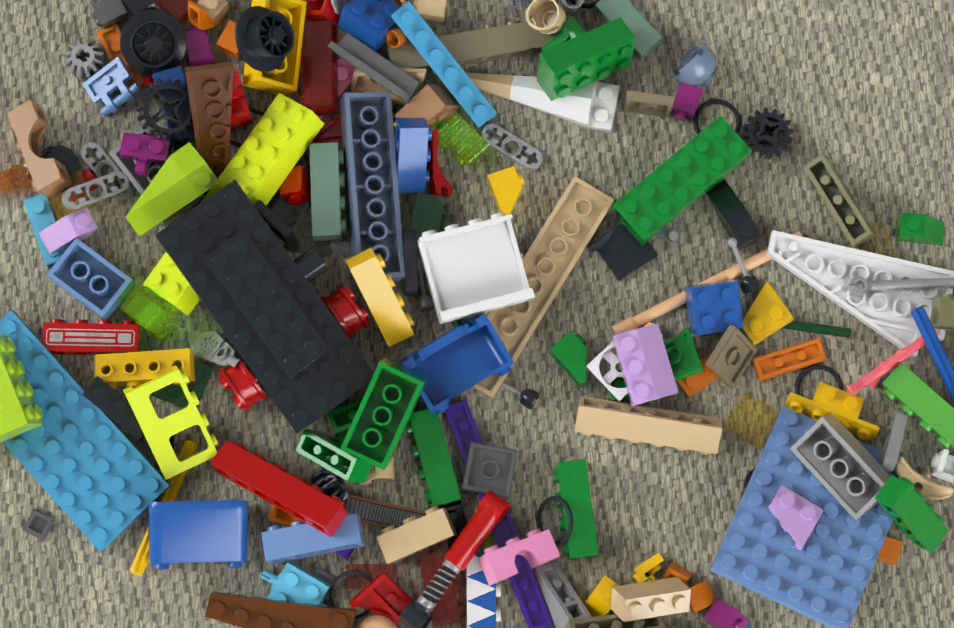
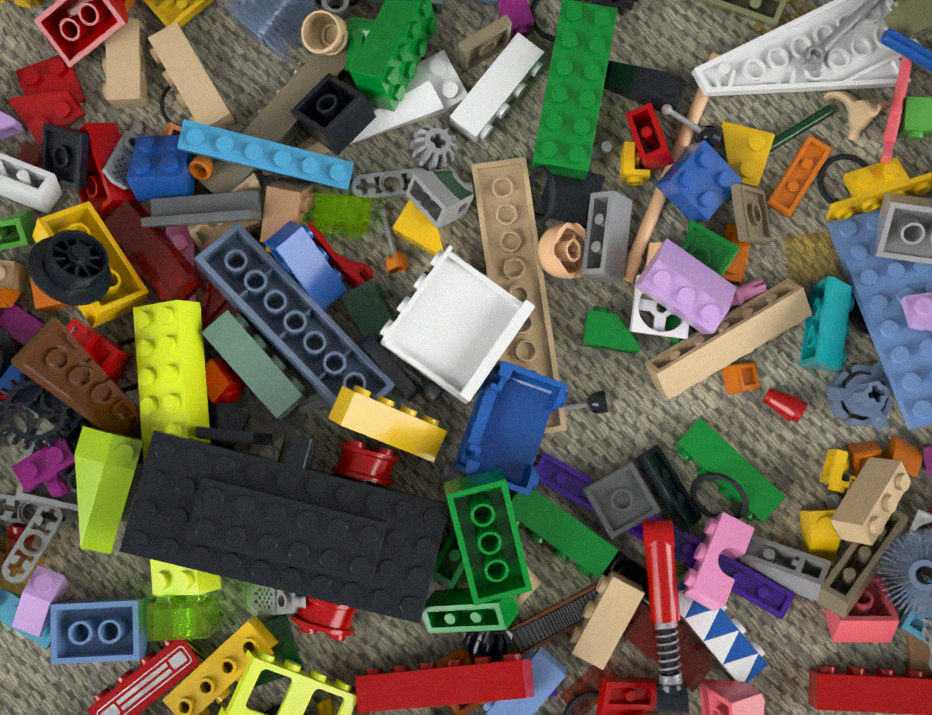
camera: 35 degrees left, 5 degrees up
(473, 199) = (396, 260): none -> hinge
(509, 71) = (333, 113): none -> black brick
(528, 489) = (669, 488): none -> black plate
(536, 180) = (440, 195): none -> light grey torso
(556, 136) = (433, 146): none -> light grey gear
(588, 281) = (562, 250): none -> light nougat cylinder
(623, 294) = (606, 236): none -> light grey brick
(633, 139) = (497, 88): none -> white brick
(637, 459) = (740, 377): none -> orange slope
(651, 500) = (787, 405): none -> red cone
(681, 403) = (748, 291): none -> bright pink pin
(682, 257) = (628, 162): none -> yellow bracket
(697, 533) = (862, 395): none -> sand blue piece
(706, 252) = (649, 138): none -> red brick
(722, 470) = (828, 326): none -> teal slope
(865, 348) = (859, 111): none -> tan piece

